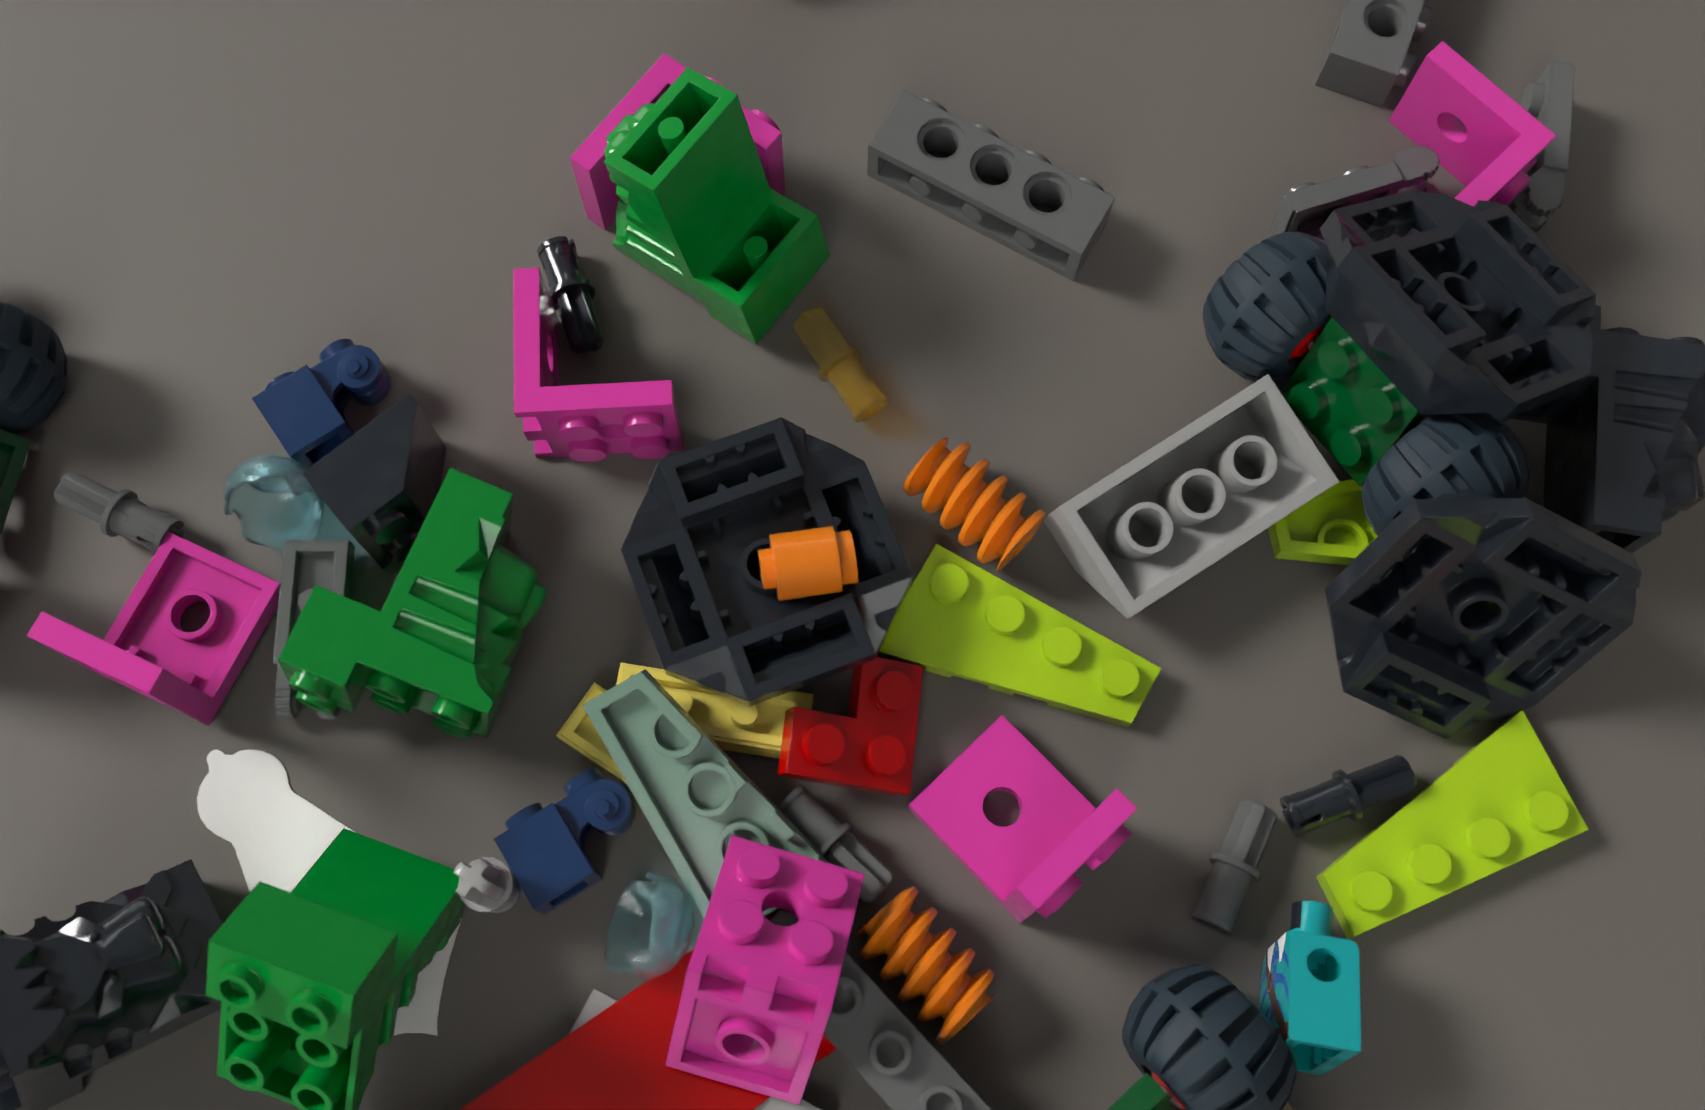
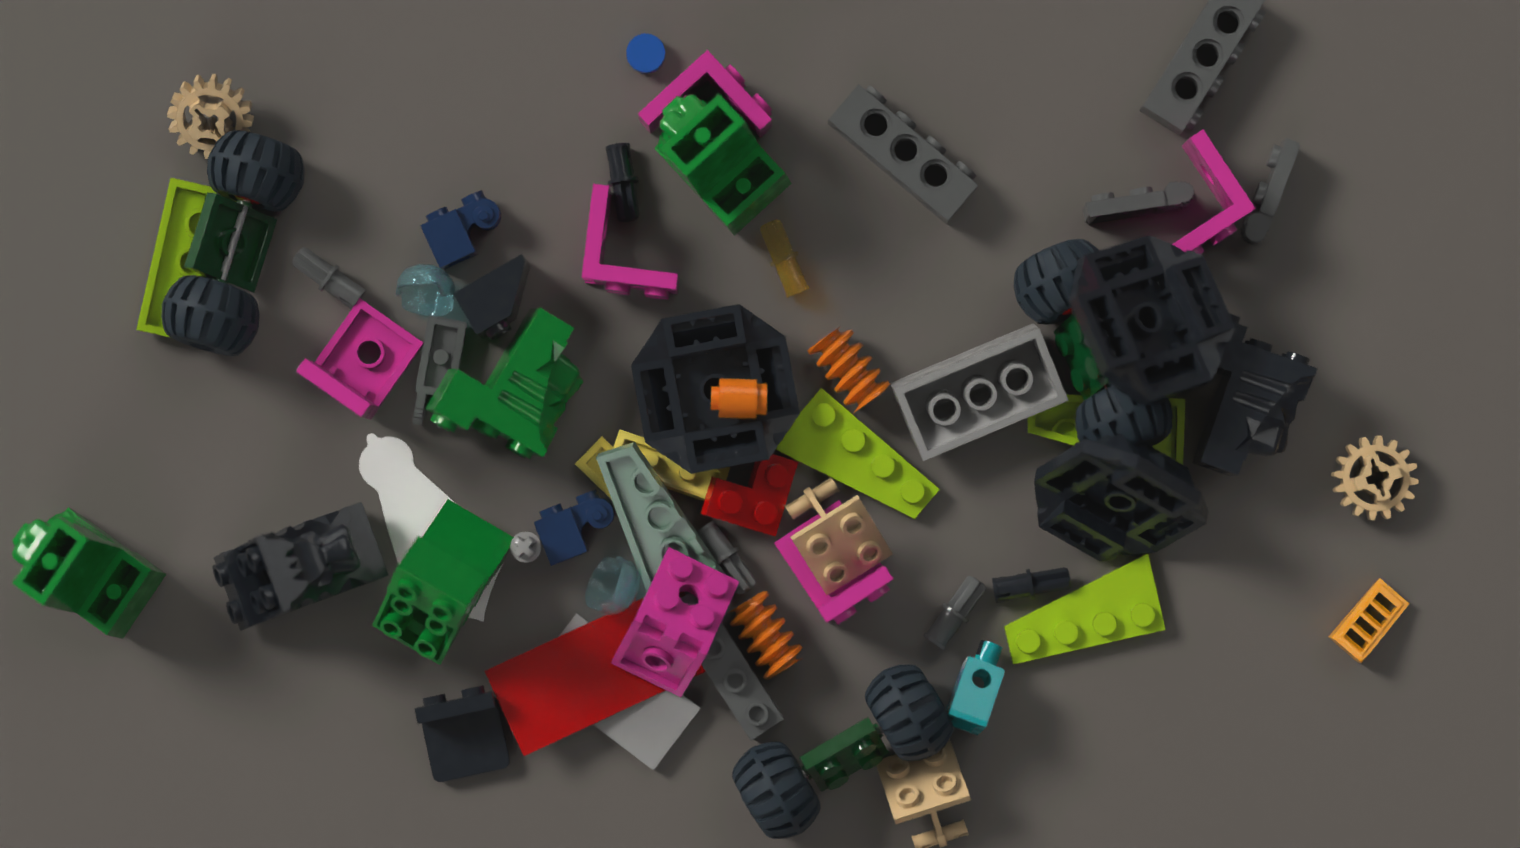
camera: 15 degrees right, 15 degrees up
(576, 116) = (645, 53): none -> blue tile
(1020, 776) = (839, 542): none -> tan plate

